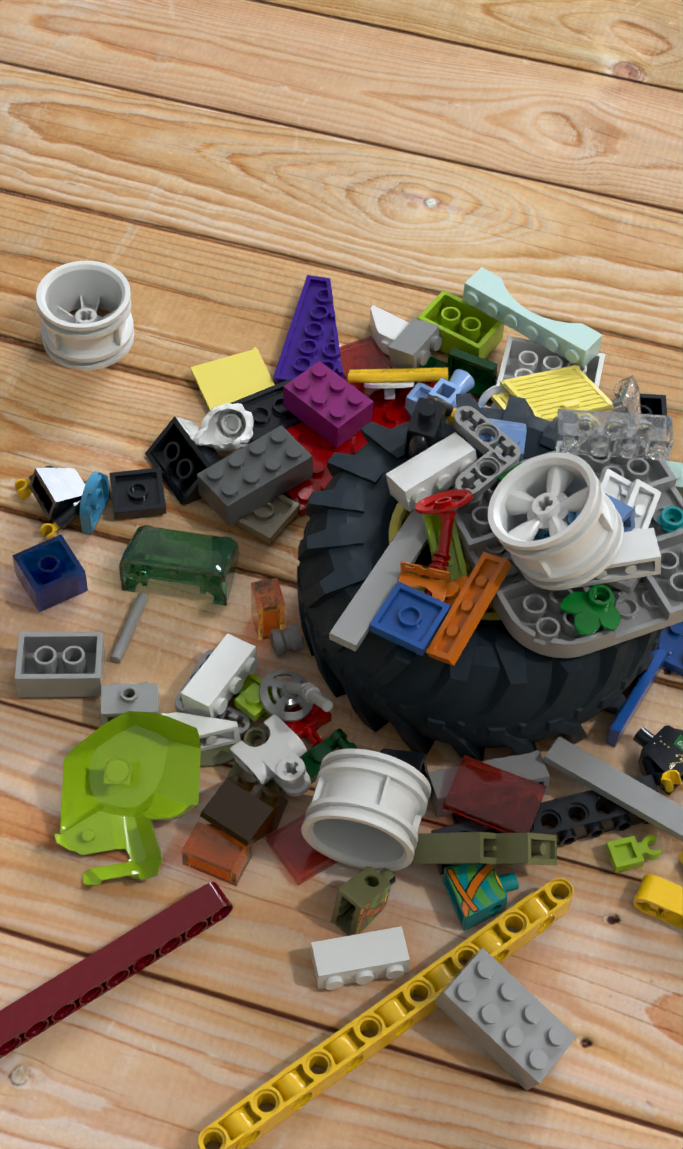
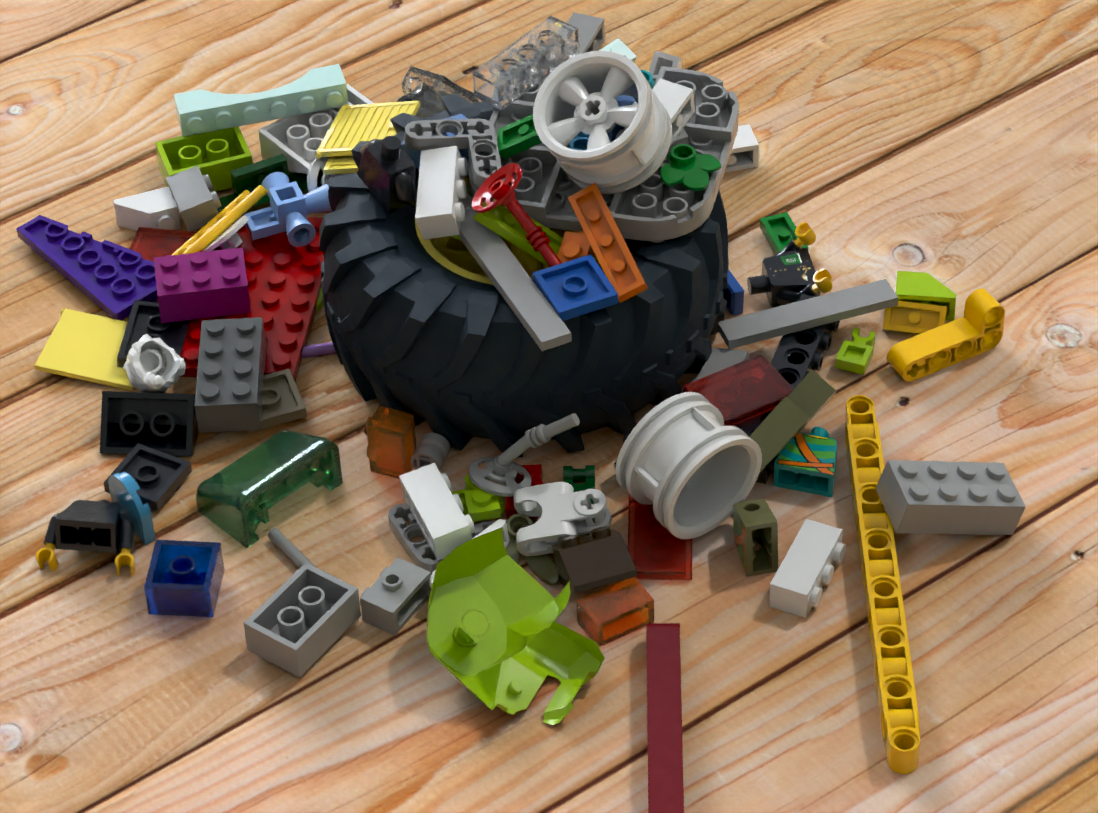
camera: 50 degrees left, 10 degrees down
(436, 587) = (561, 254): orange piece -> none

